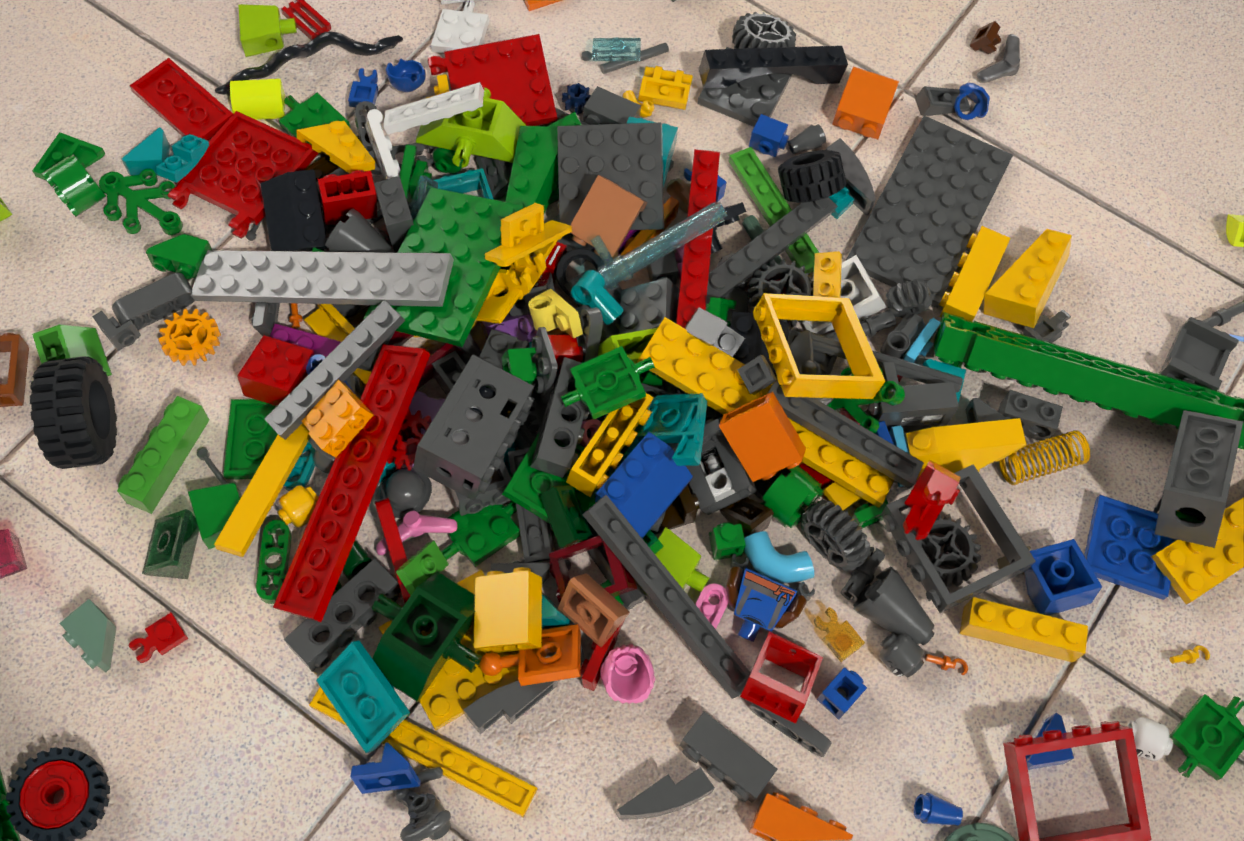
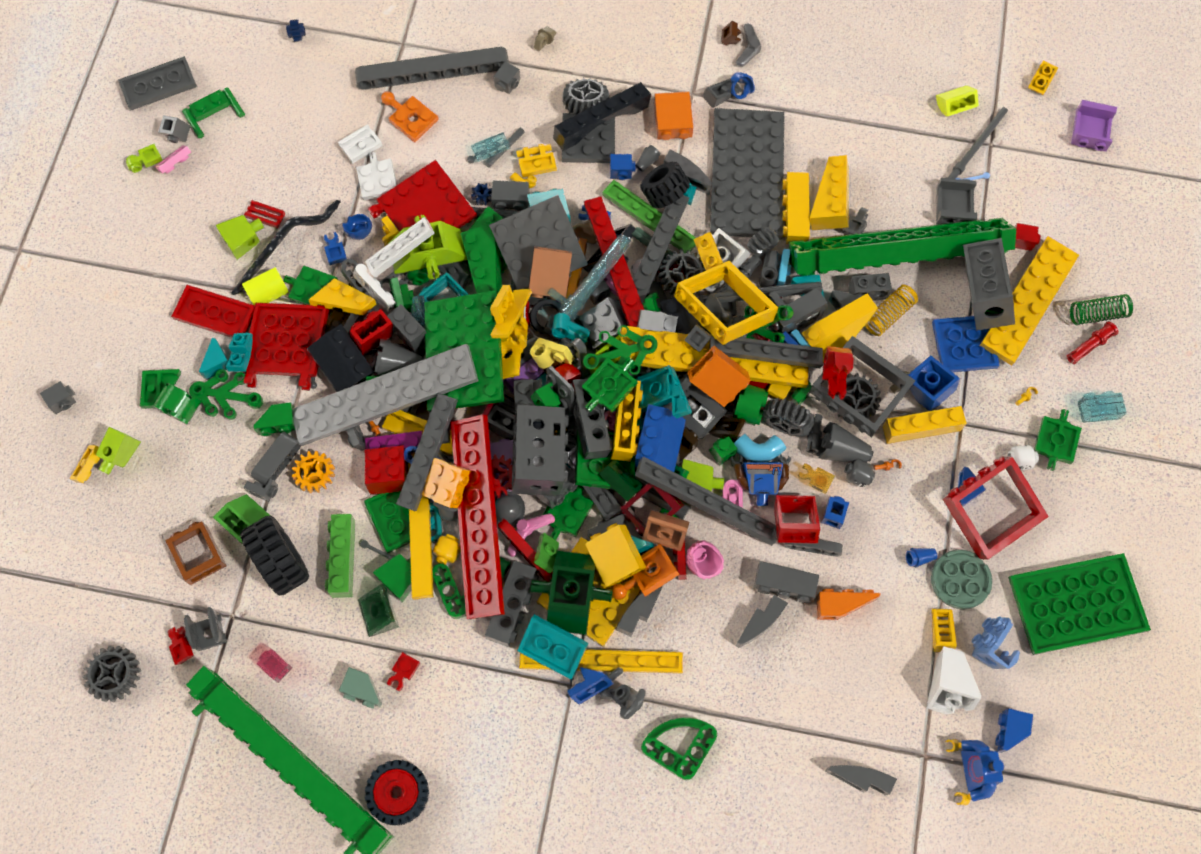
camera: 20 degrees left, 5 degrees up
(649, 346) = (624, 350): none -> green plant

